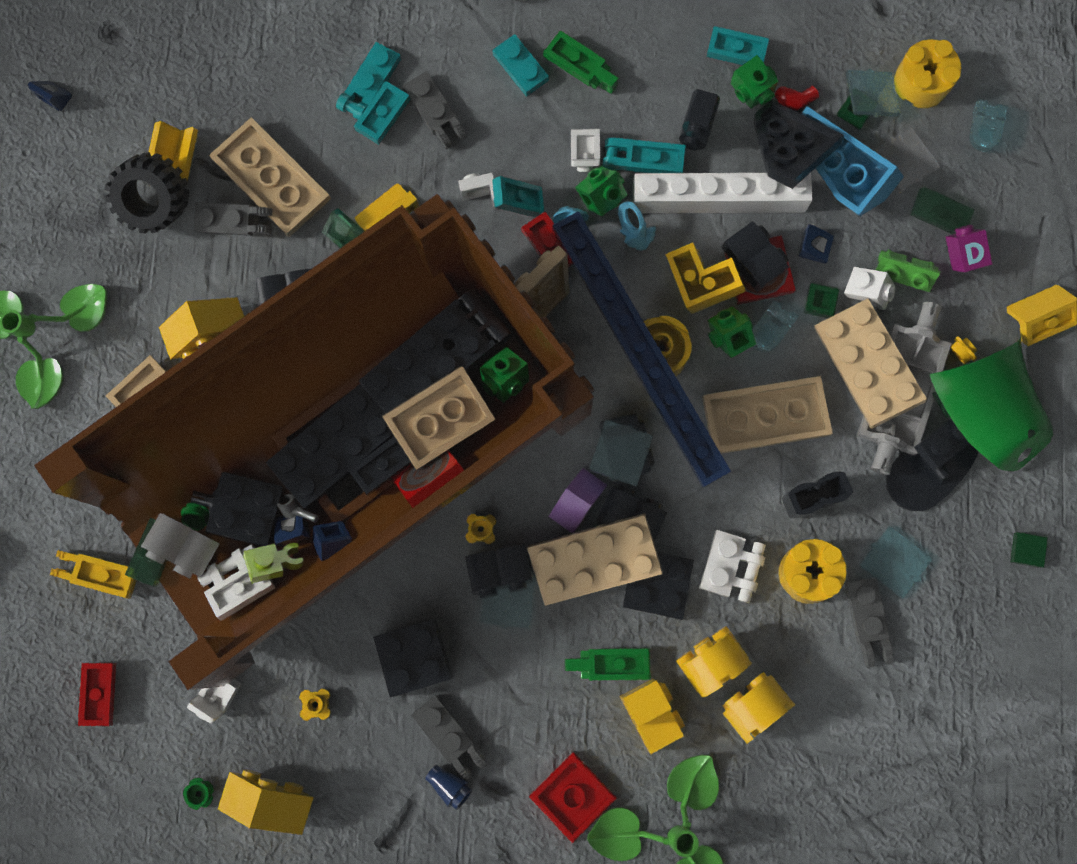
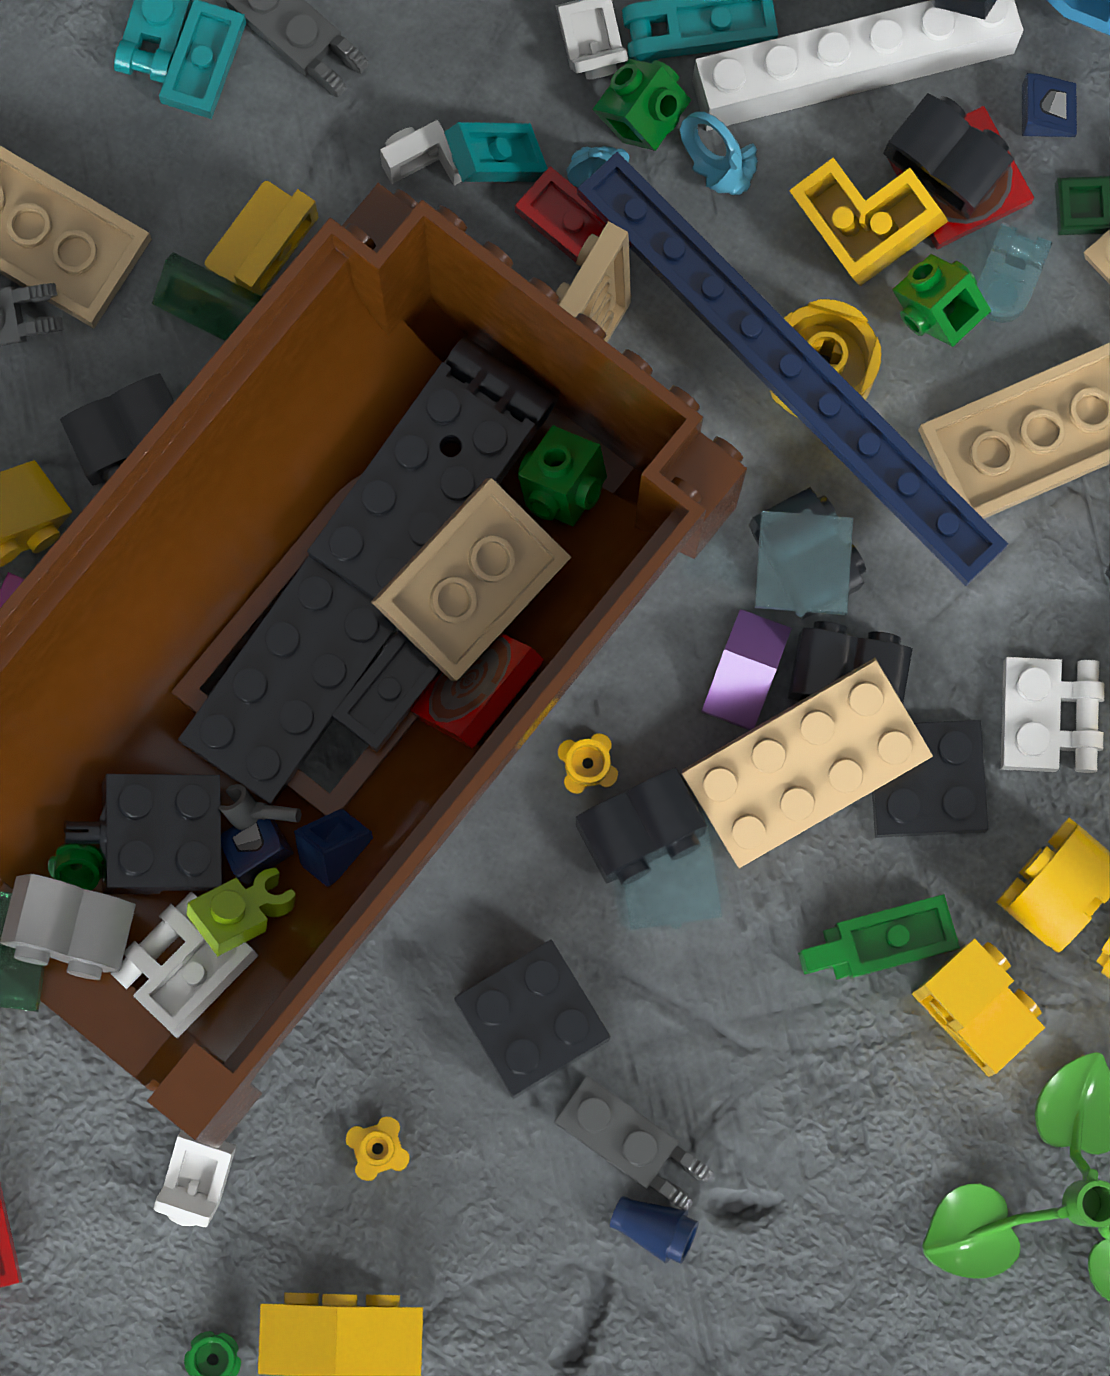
camera: 20 degrees left, 0 degrees up
(572, 797) = (877, 1189): red tile -> none

